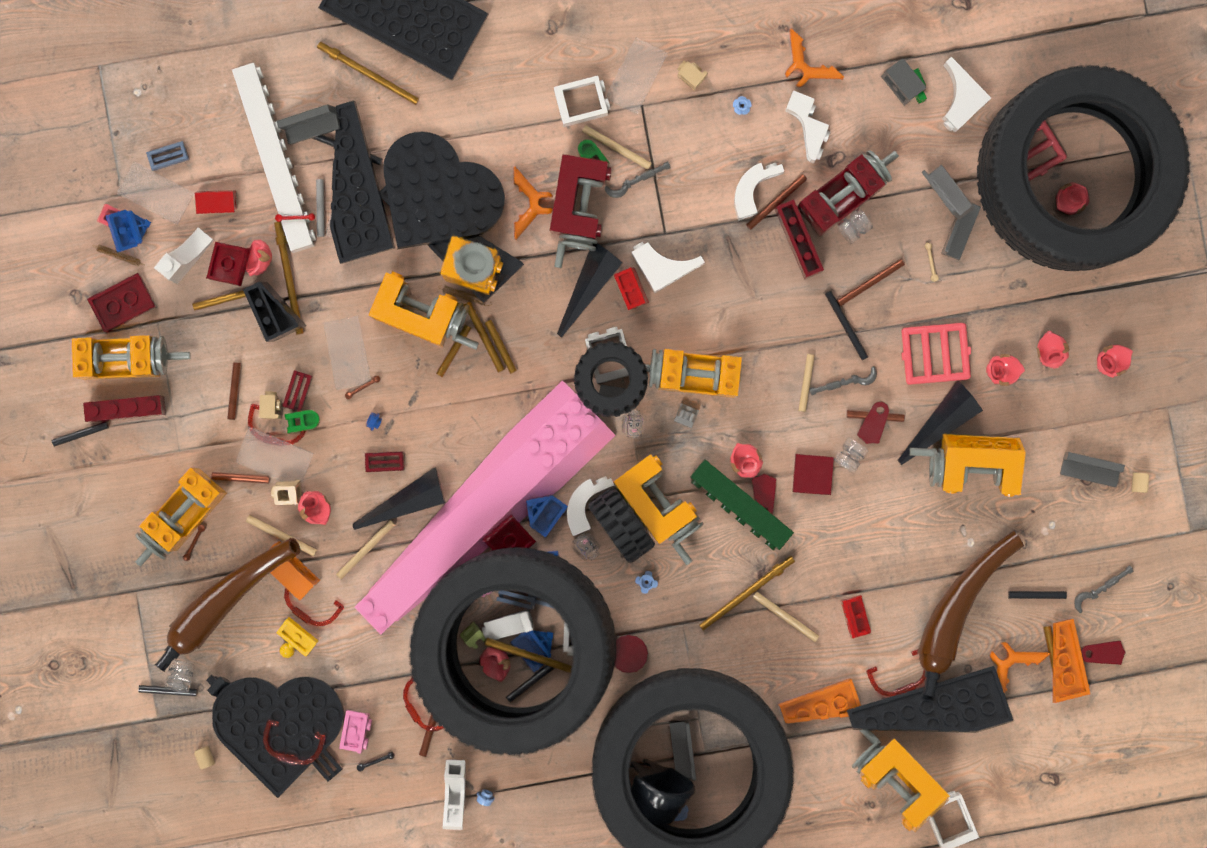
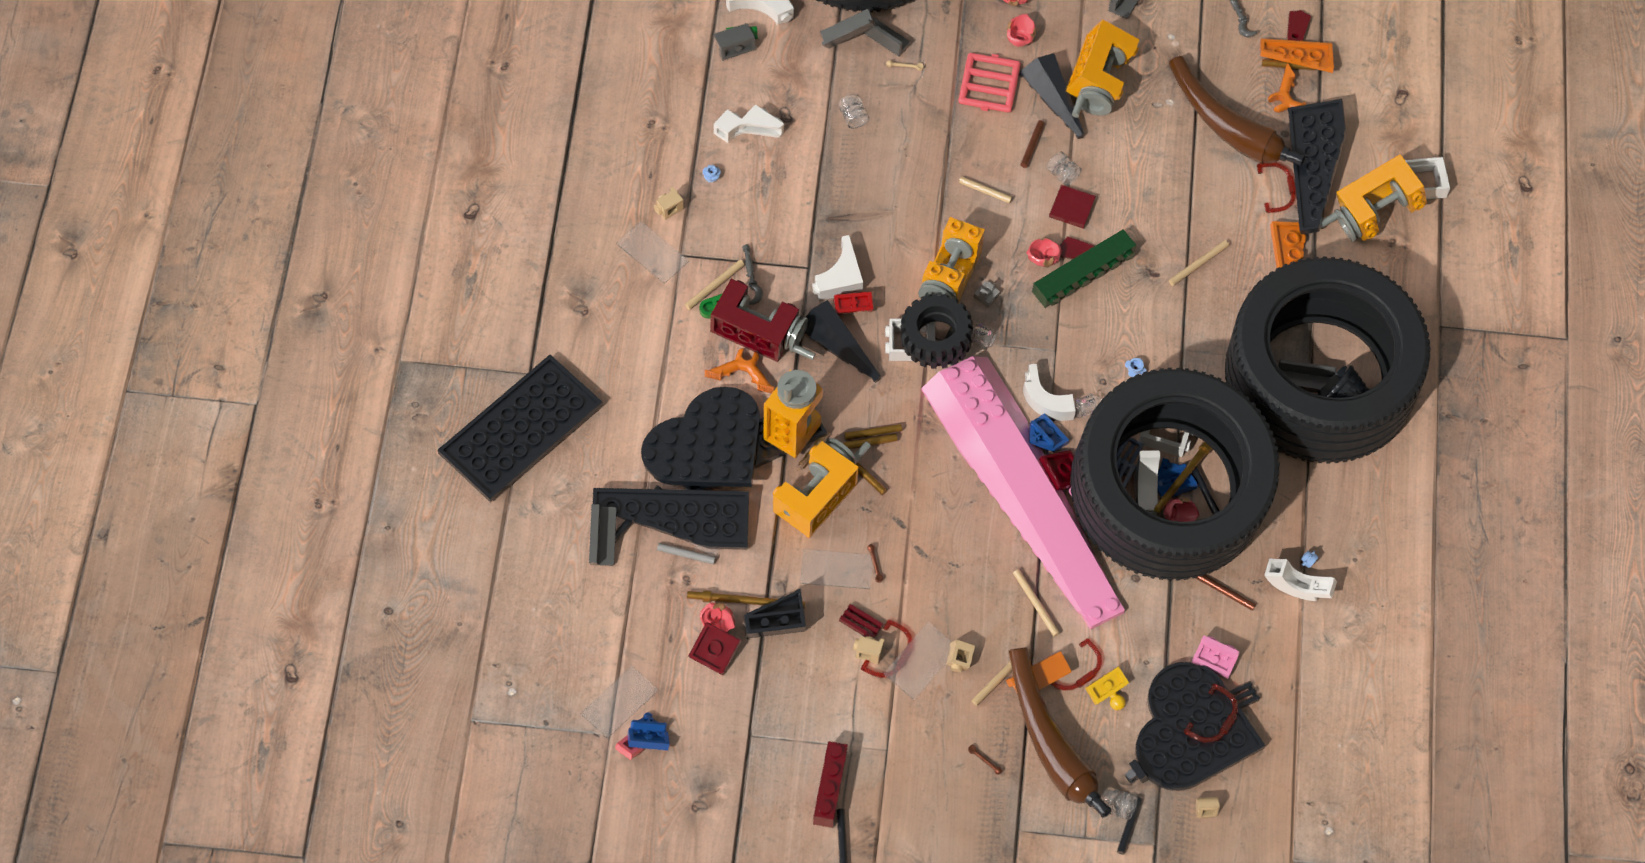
camera: 80 degrees left, 25 degrees down
(121, 302) = (720, 762): dark red tile -> none
(122, 357) = (779, 766): light orange piece -> none
(125, 258) = (672, 749): pearl gold piece -> none
(169, 163) = (586, 693): sand blue tile -> none
(179, 515) = (958, 766): light orange piece -> none
(180, 261) = (698, 688): white arch -> none
(215, 201) = (648, 643): red hinge -> none
(218, 300) = (747, 668): pearl gold bar -> none
(233, 391) = (843, 681): copper bar -> none
(240, 477) = (931, 698): copper bar -> none
(273, 157) = (622, 579): white brick -> none
(279, 218) = (686, 584): red hinge -> none
(309, 420) = (894, 616): green plate -> none
(314, 507) = (983, 633): coral hair -> none
(336, 54) = (540, 498): pearl gold bar -> none
(360, 767) = (1252, 666): black hinge -> none
(373, 421) = (911, 560): blue plate -> none
(400, 461) = (951, 577): dark red tile -> none
(413, 713) = (1209, 602): clear red piece -> none
(417, 496) = (996, 536): black wedge -> none
(604, 103) = (661, 316): white window -> none
(621, 525) = (1077, 359): black tyre -> none
(677, 522) = (1077, 337): light orange piece -> none
(743, 197) = (793, 190): white arch -> none
(776, 570) = (1154, 258): pearl gold bar -> none
(777, 201) = (808, 167): copper bar -> none
(799, 239) = (852, 156): dark red brick -> none
(807, 71) = (698, 114): orange piece -> none
(846, 191) = (819, 109): dark red piece -> none
(846, 325) = (942, 144): black bar -> none
(855, 379) = (993, 151): dark grey piece -> none
(855, 616) = (1214, 207): red hinge -> none
(870, 282) = (908, 115): copper bar -> none
(874, 424) = (1039, 144): dark red piece -> none
(1037, 594) = (1231, 63): black bar -> none

